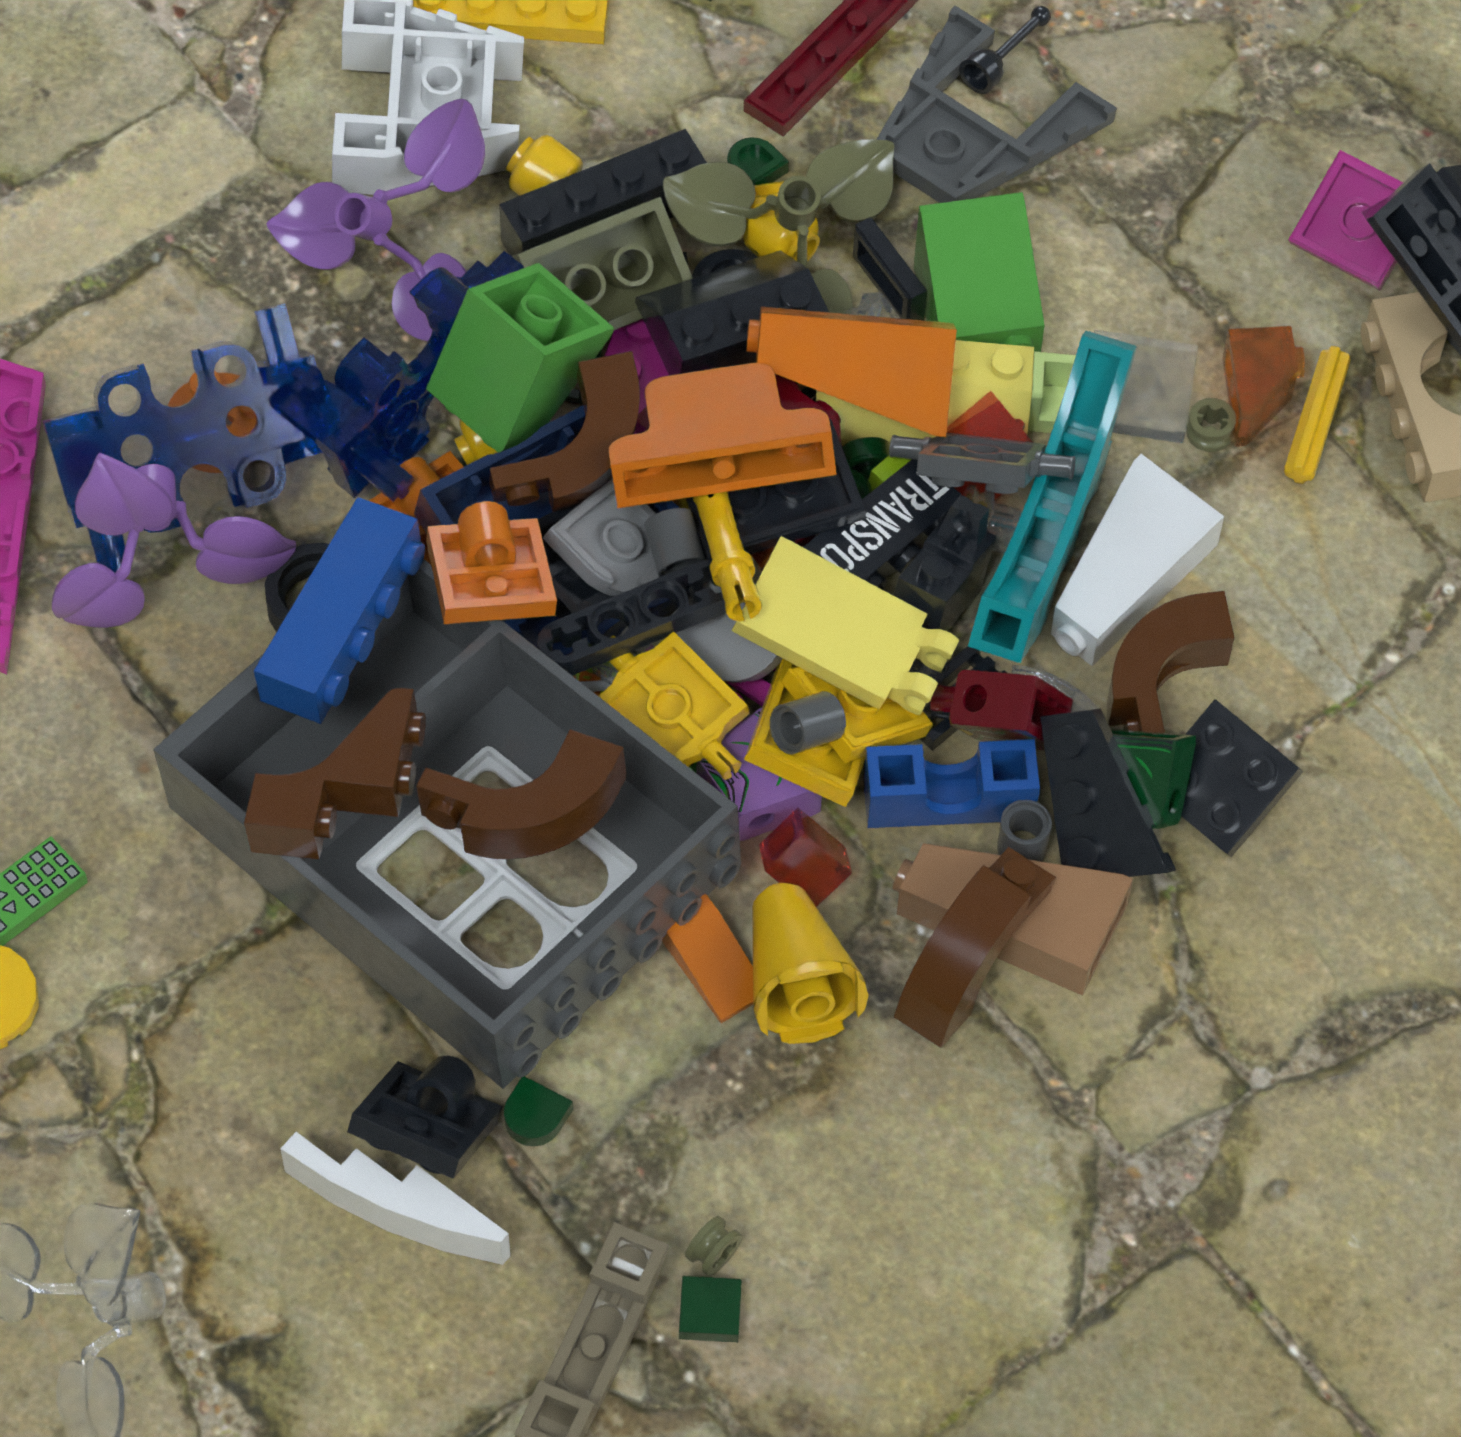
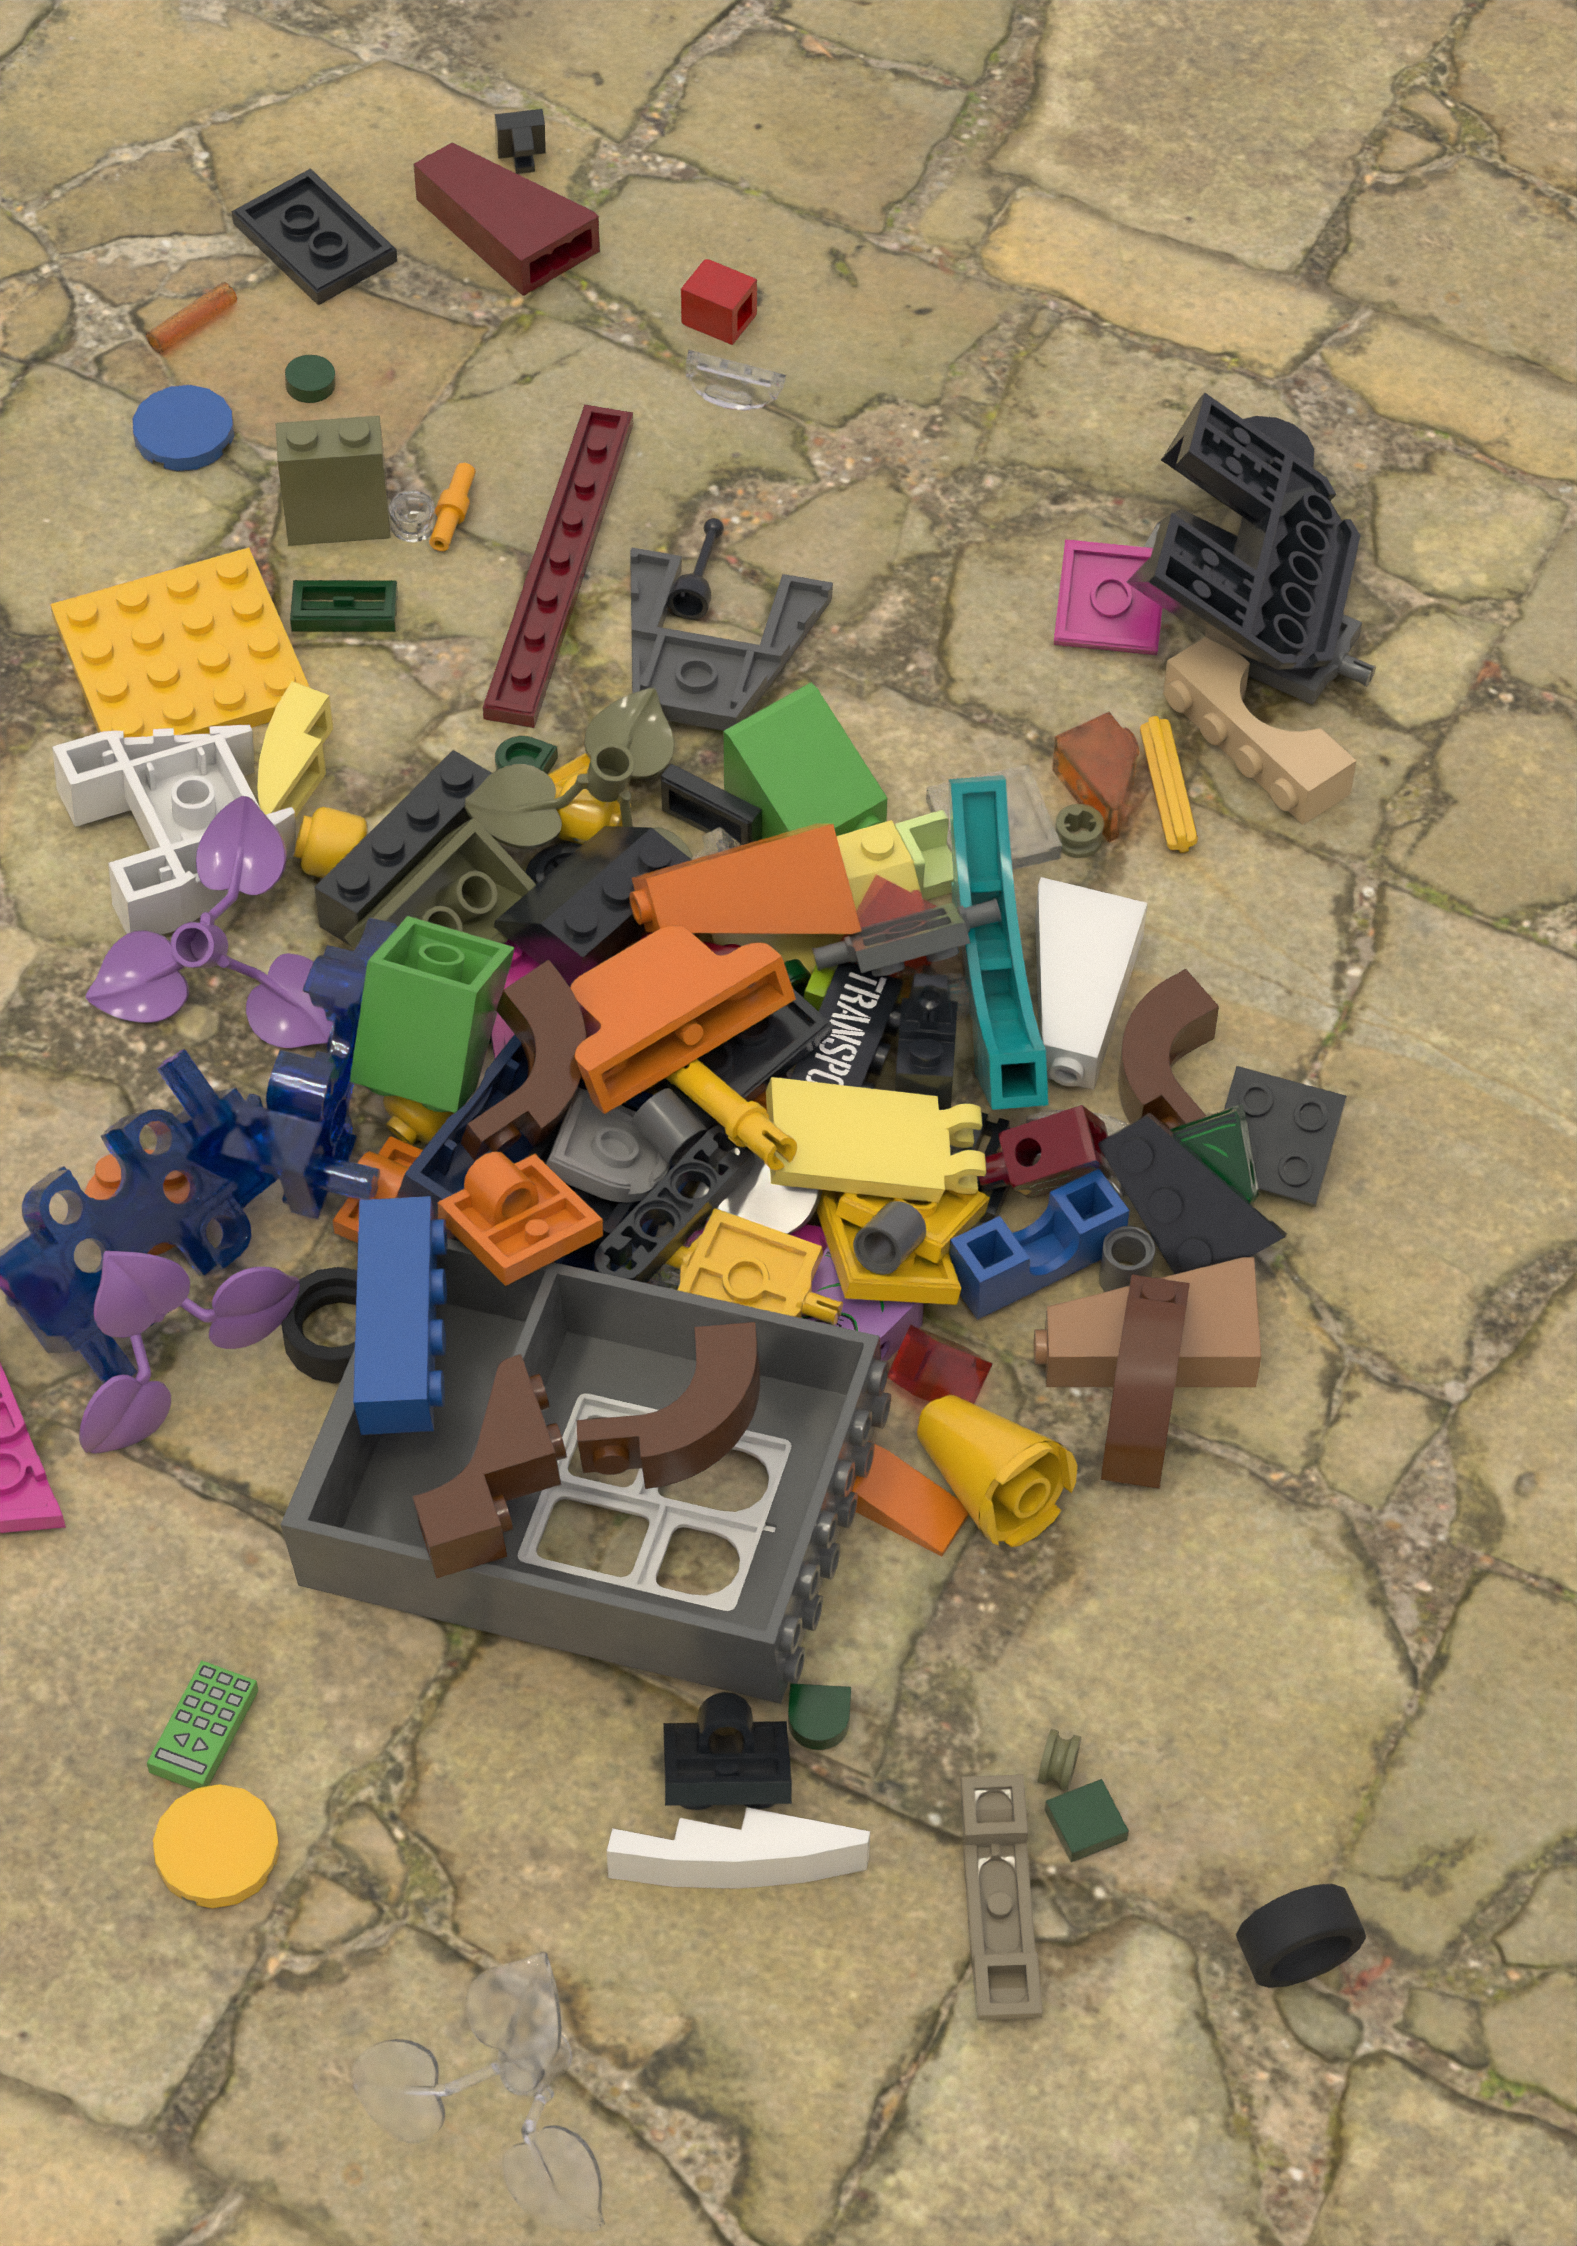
camera: 25 degrees left, 5 degrees down
(553, 77) = (293, 749): none -> light yellow slope

